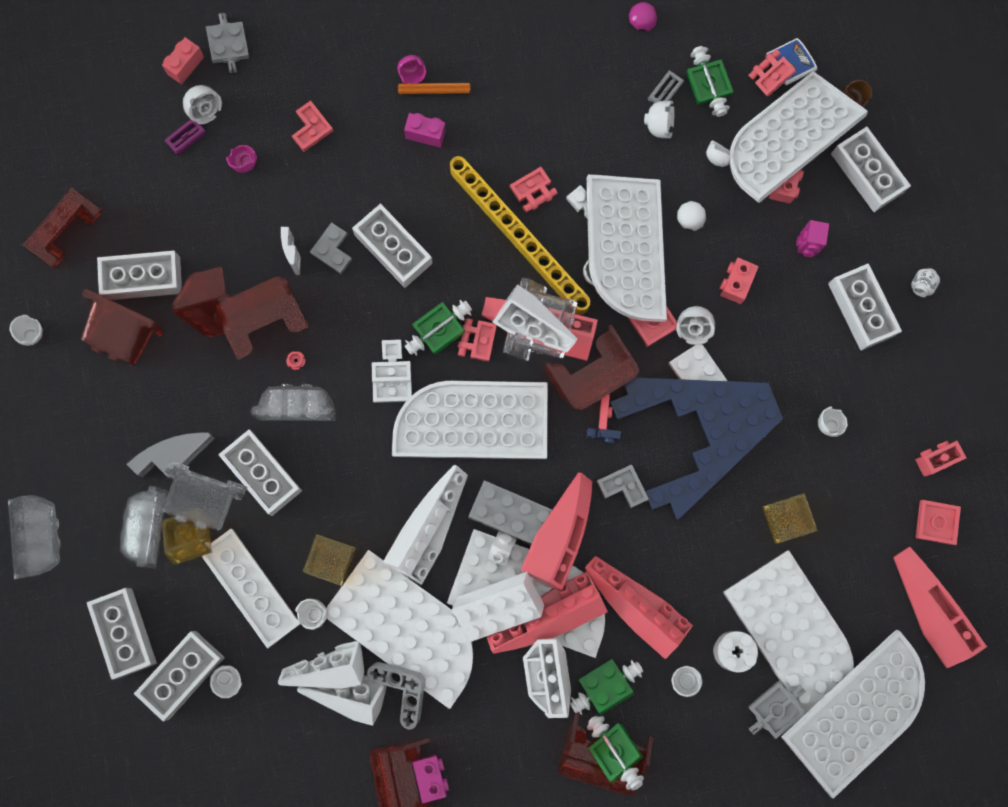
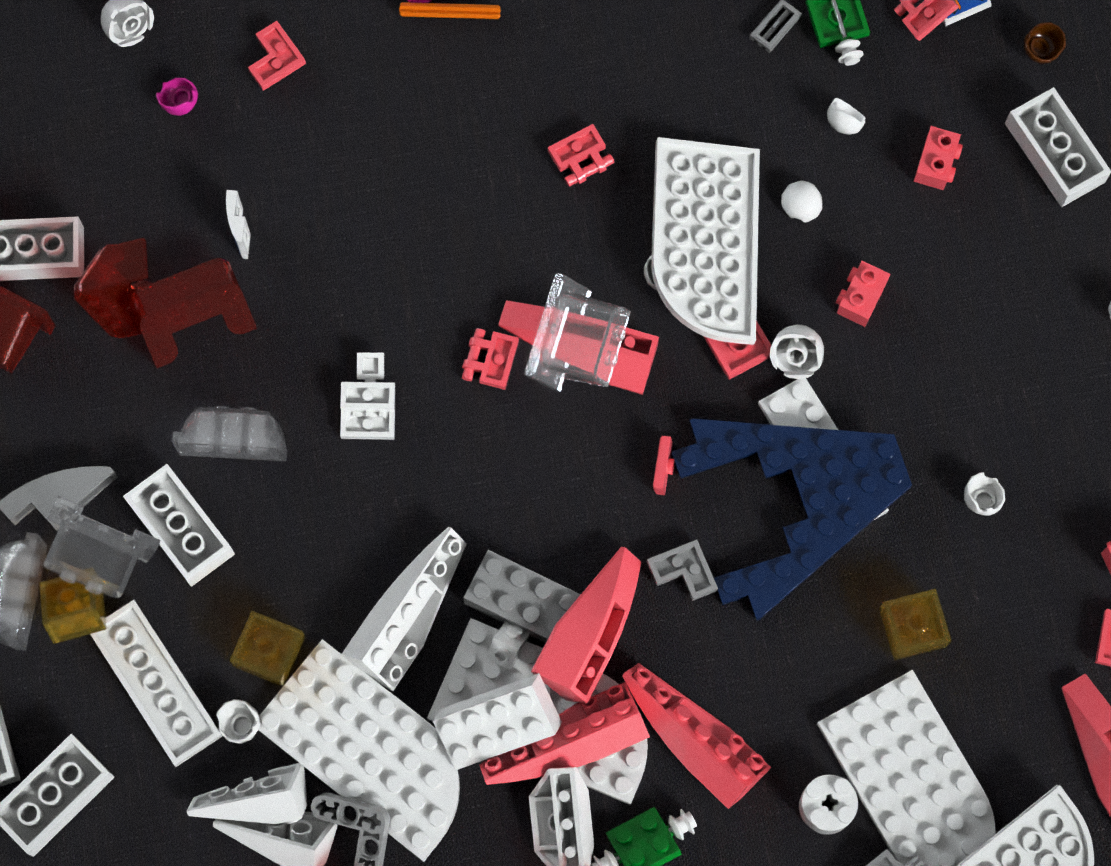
camera: 10 degrees right, 5 degrees down
(188, 141) = (105, 70): magenta tile -> none
(225, 681) = (114, 807): white hair -> none
(295, 365) = (233, 368): coral plate -> none
(327, 249) = (288, 225): light grey plate -> none
(392, 245) = (379, 223): white brick -> none
(424, 129) = (433, 67): dark pink brick -> none
(438, 328) = (437, 339): green plate -> none
(474, 421) = (479, 470): white plate -> none
(517, 226) = (551, 206): yellow beam -> none
(528, 316) = (562, 327): white wedge -> none
(578, 200) = (643, 171): white plate -> none
(598, 378) = (655, 418): clear red windscreen -> none
(608, 436) = (665, 498): dark blue plate -> none
(660, 119) = (764, 65): white cylinder -> none
(686, 681) = (757, 842): white hair -> none
(790, 134) = (946, 94): white plate -> none
(812, 238) = (968, 239): dark pink brick -> none
(864, 307) = (1038, 337): white brick -> none

